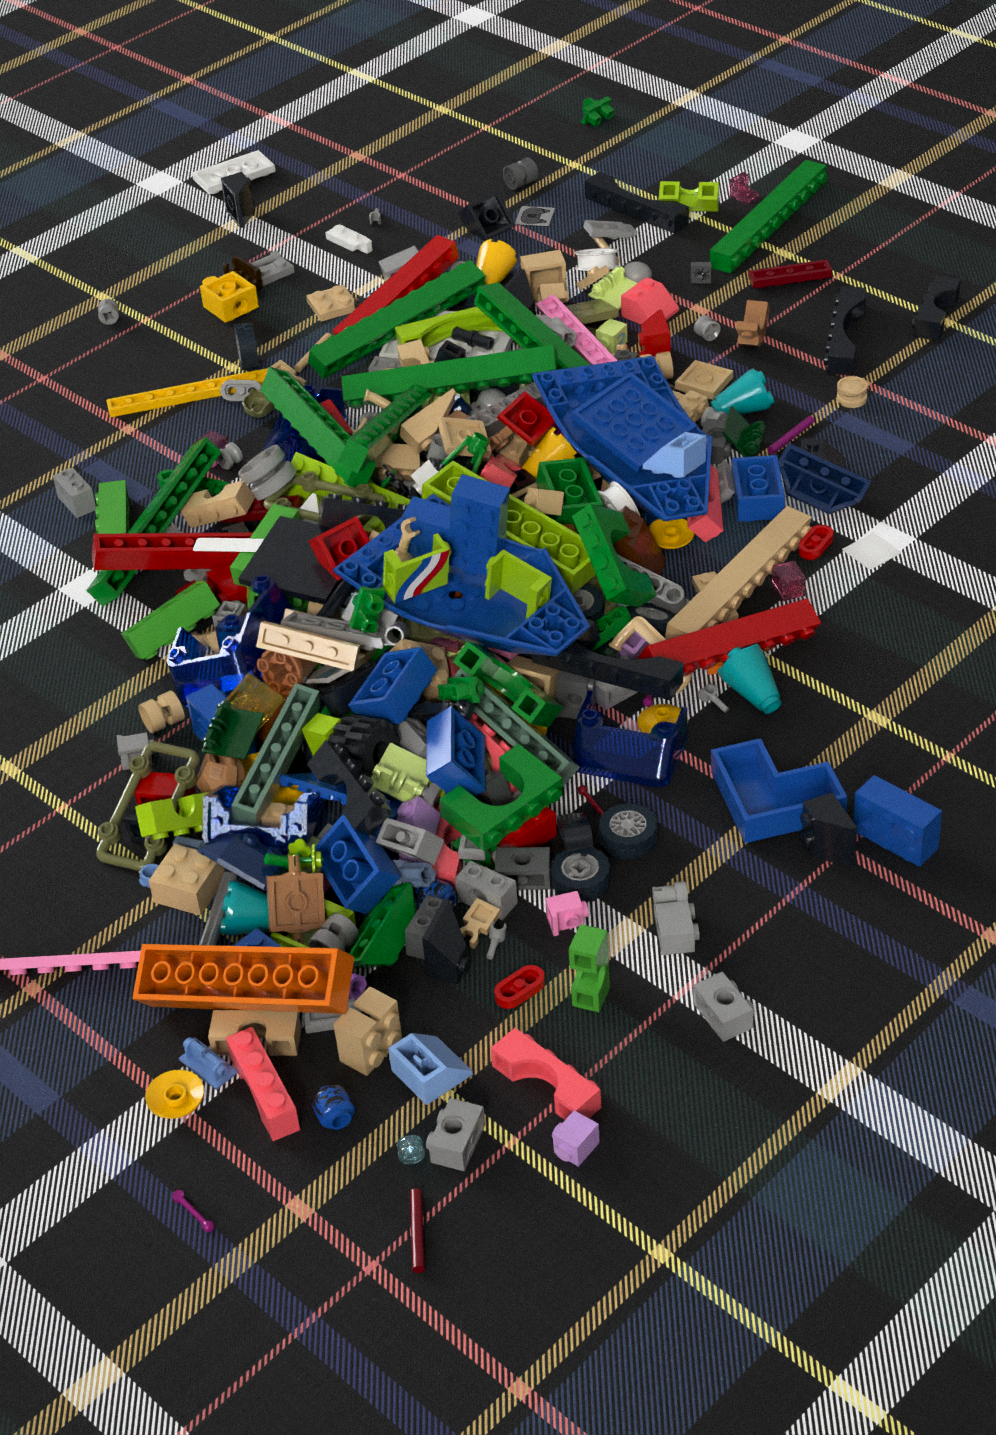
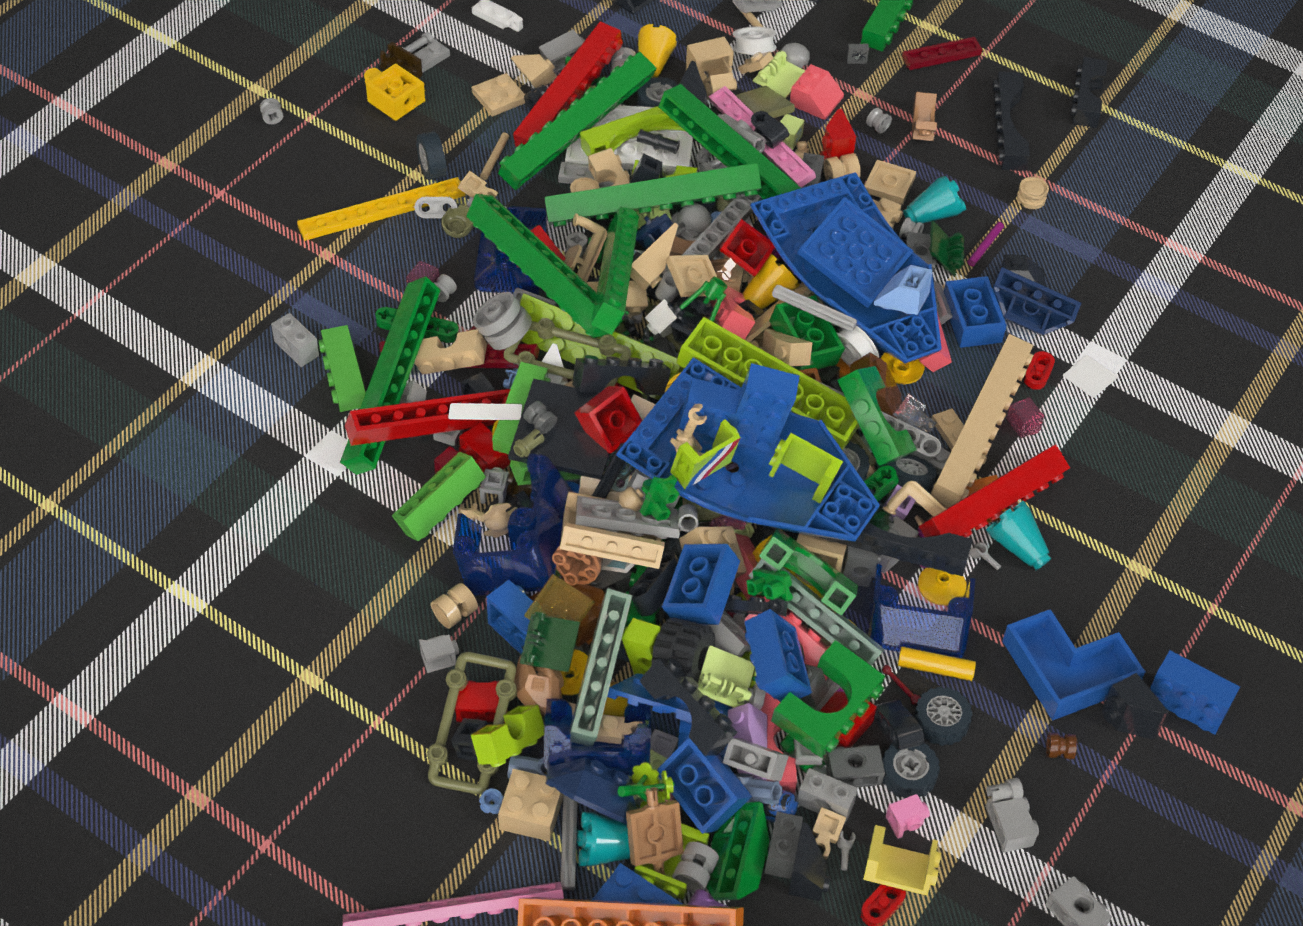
camera: 15 degrees left, 10 degrees up
(257, 567) = (528, 443): none -> olive pin
(275, 546) = (540, 417): none -> dark grey wheel
(343, 615) = (631, 498): none -> tan piece
(369, 277) = (535, 69): none -> tan slope
(535, 954) = (900, 866): none -> light yellow panel
(576, 465) = (814, 308): none -> light grey axle
(583, 324) = (769, 128): none -> black piece
(591, 959) = (955, 886): bright green arch -> none
(634, 786) = (936, 663): none -> yellow piece
(672, 570) = (912, 413): none -> clear hinge
(744, 862) = (1058, 745): none -> reddish brown wheel

